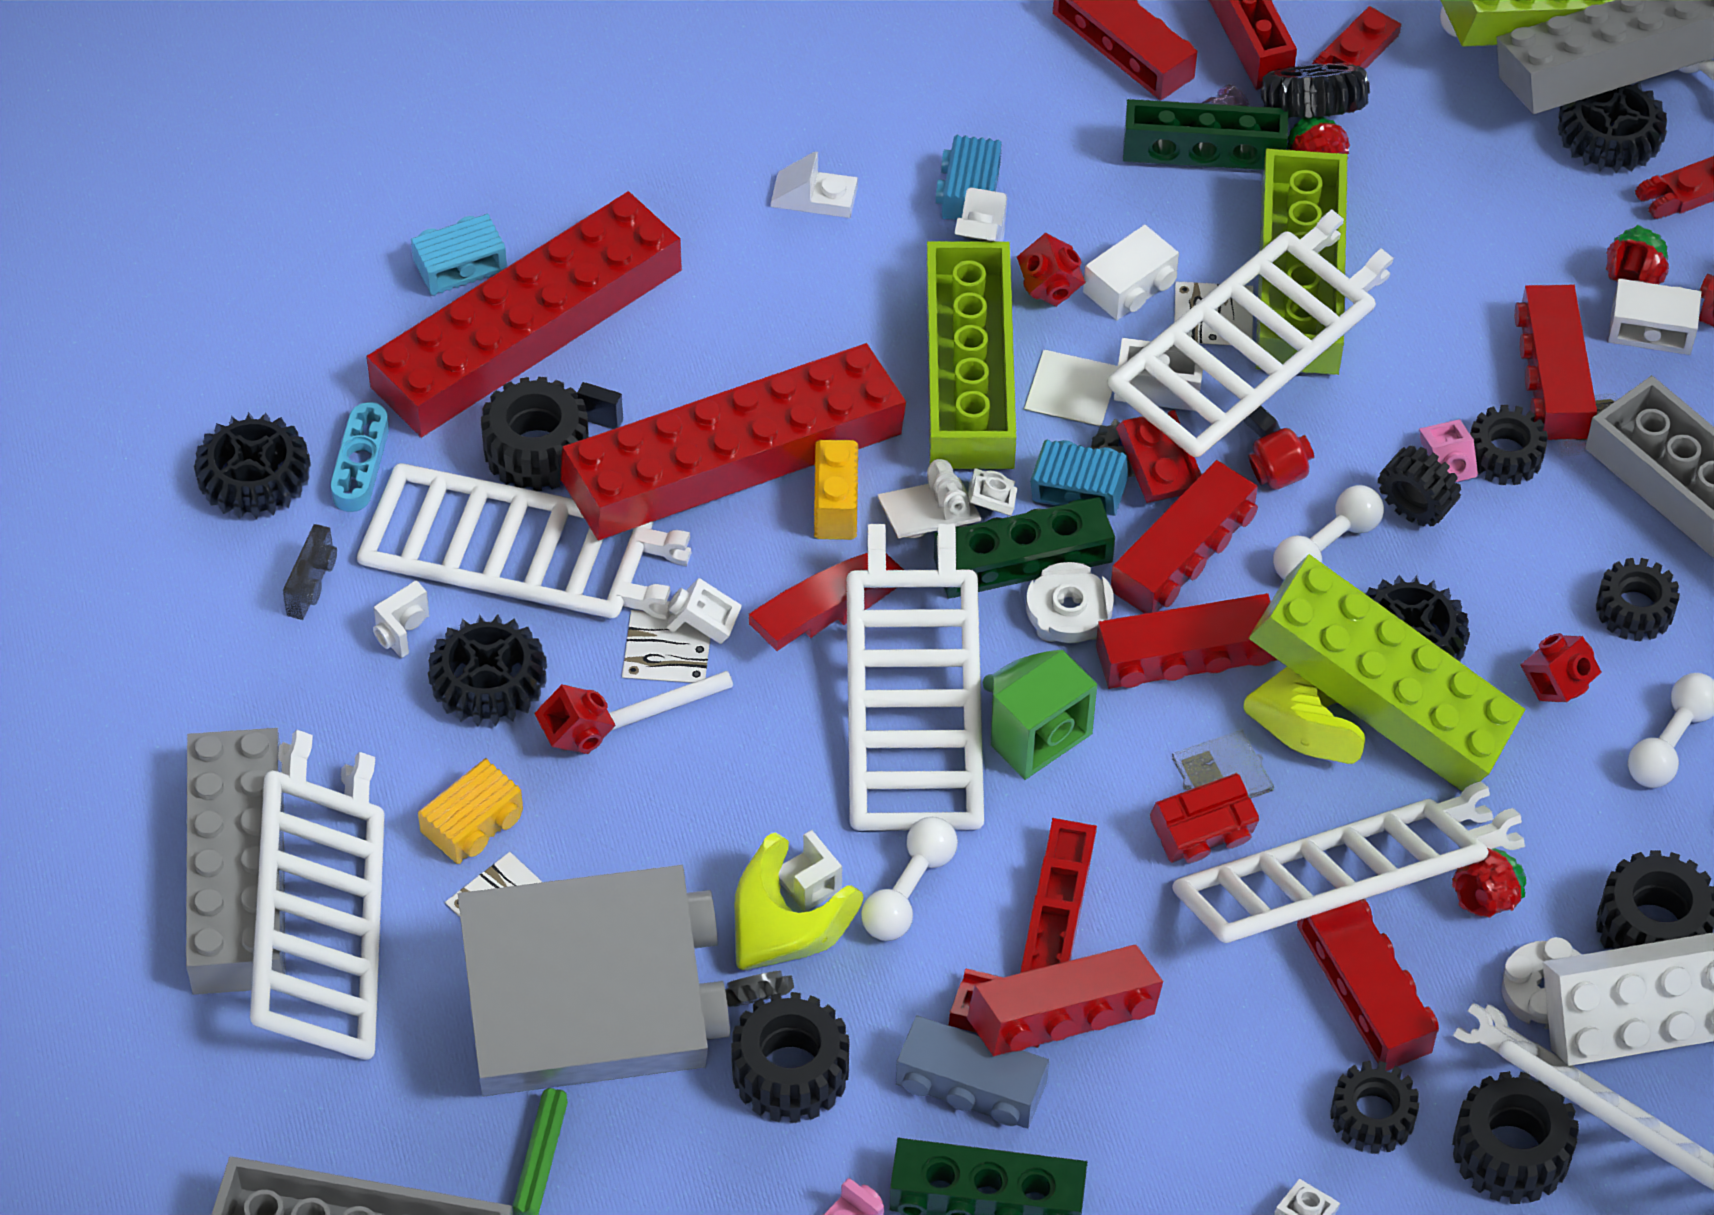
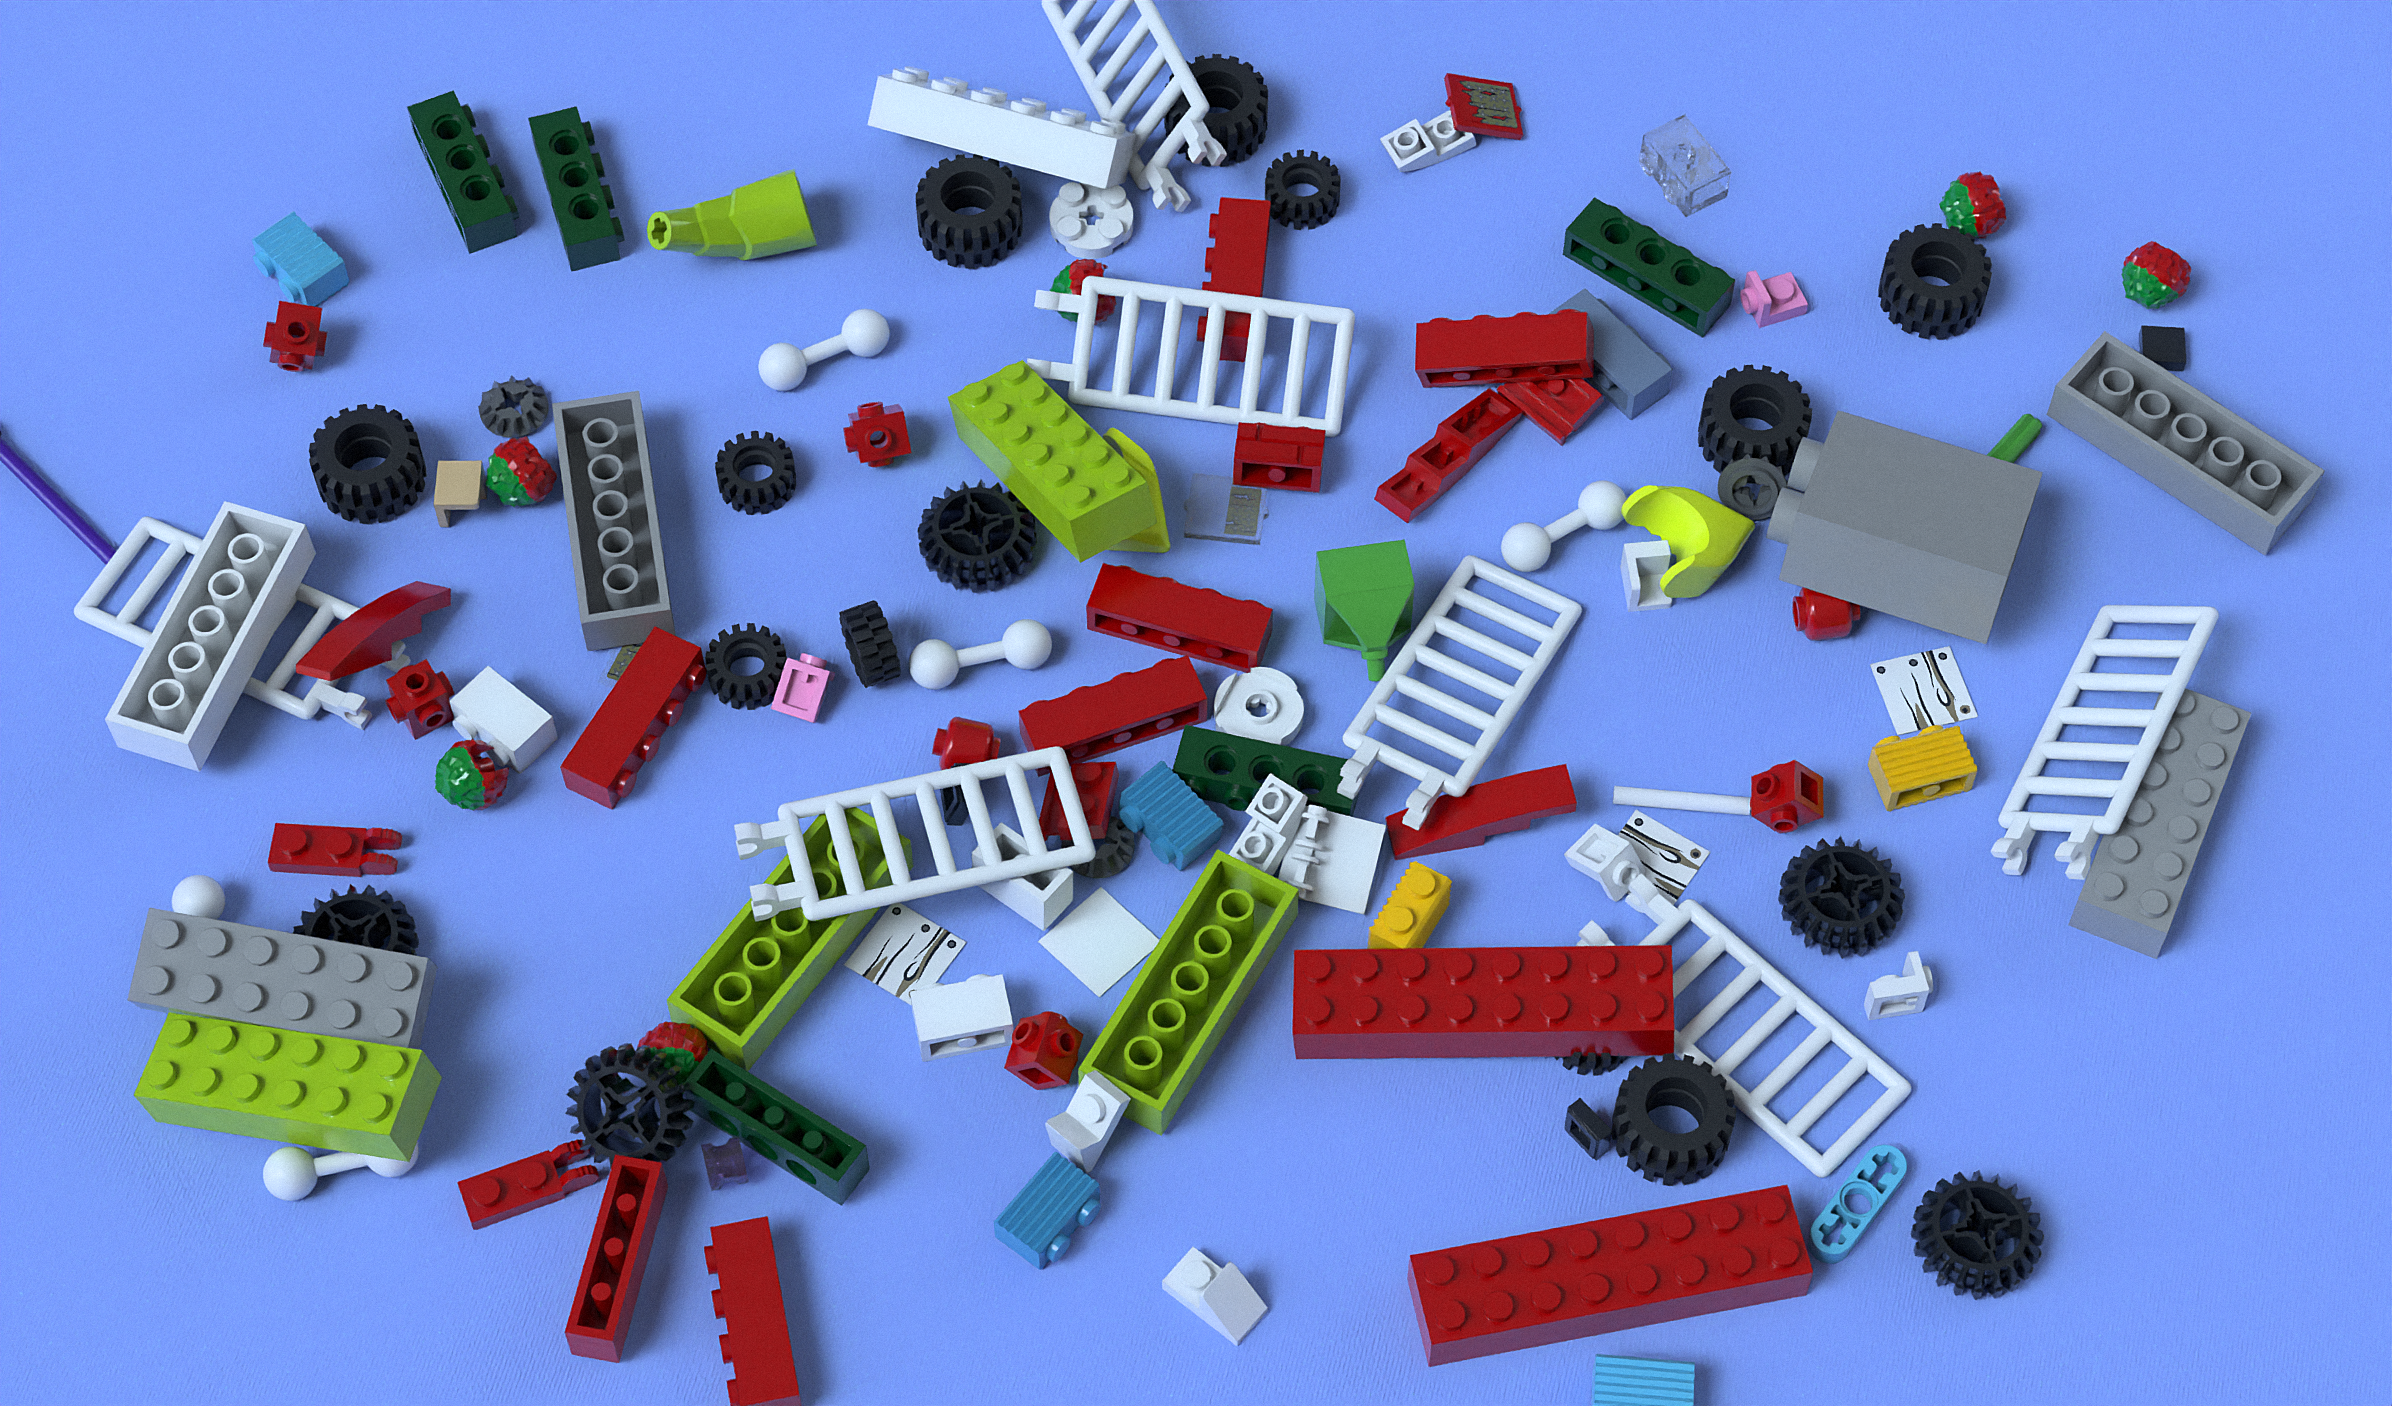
camera: 150 degrees left, 5 degrees up
(304, 582) = (1980, 1070): clear smoke plate -> none

